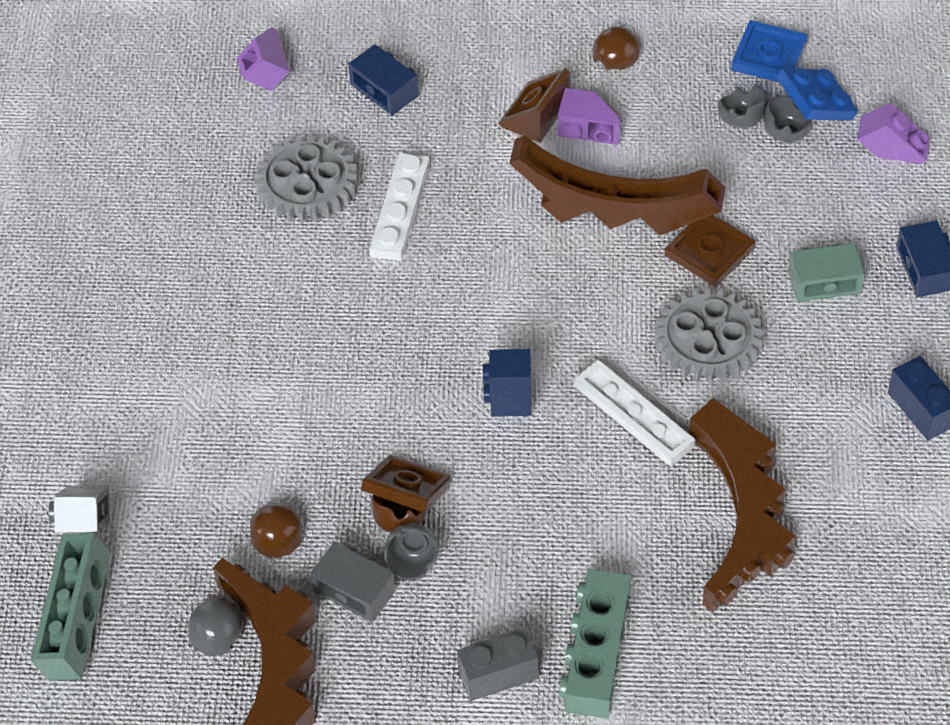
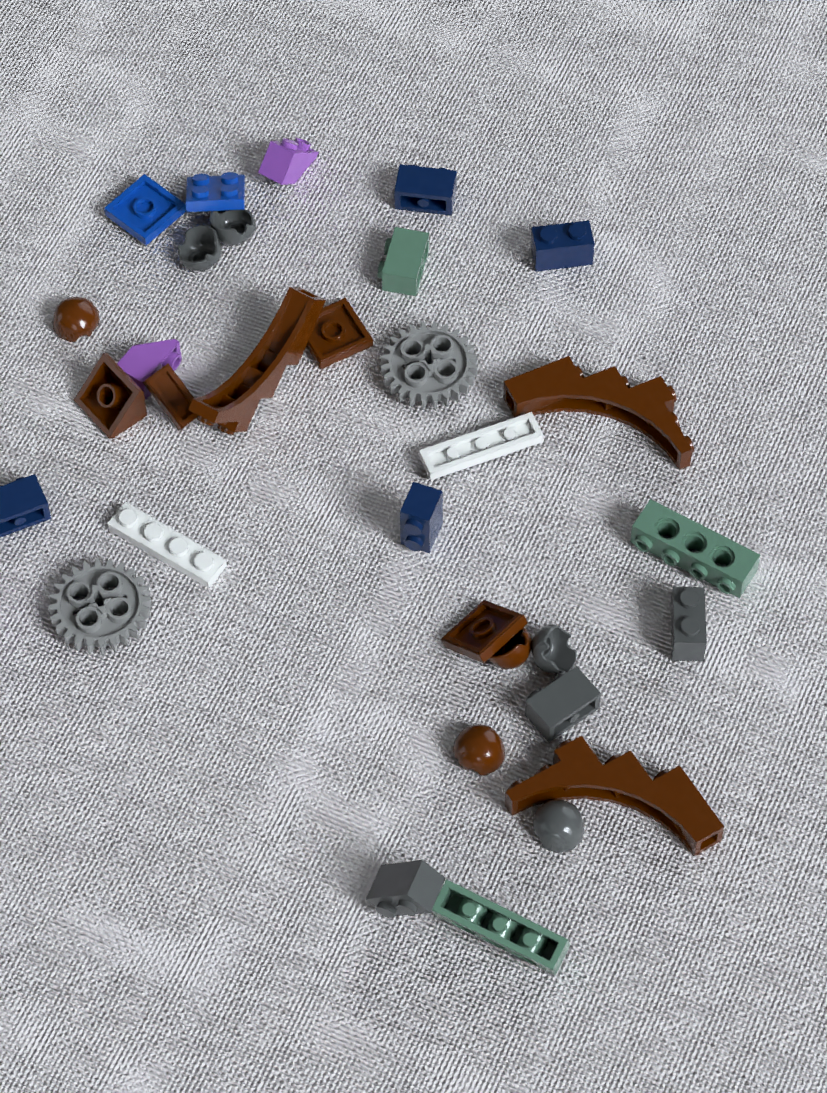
camera: 70 degrees left, 5 degrees up
(563, 136) = (171, 396): none -> reddish brown tile

